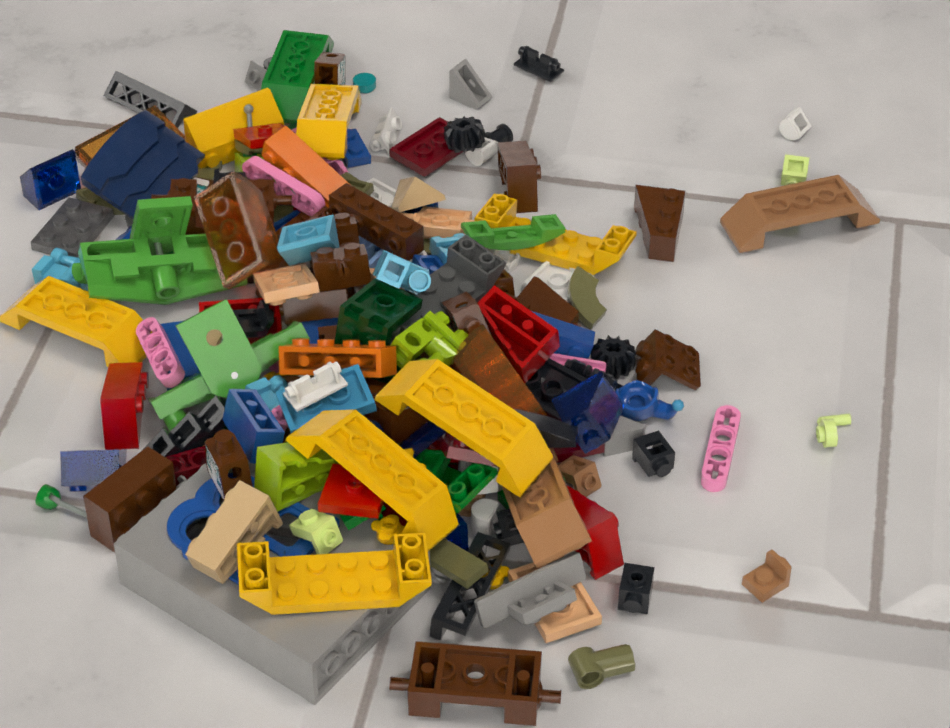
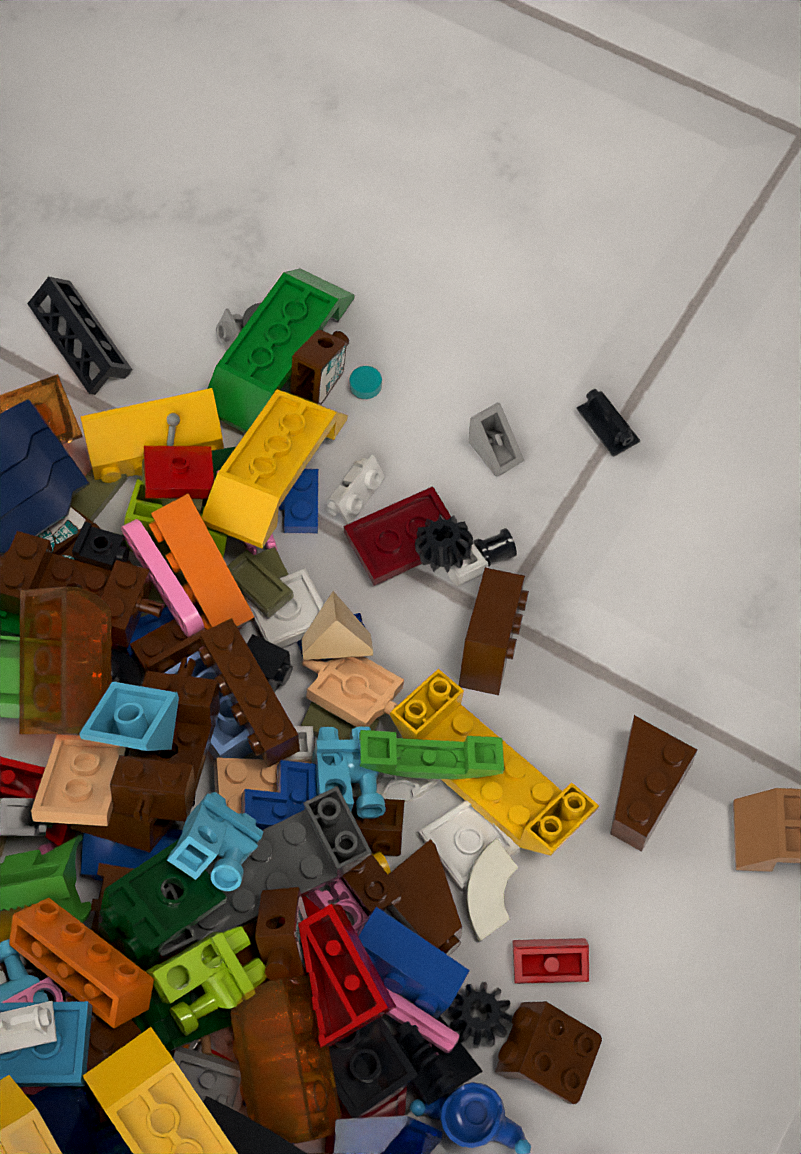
camera: 20 degrees right, 20 degrees up
(642, 324) = (551, 960): none -> red slope

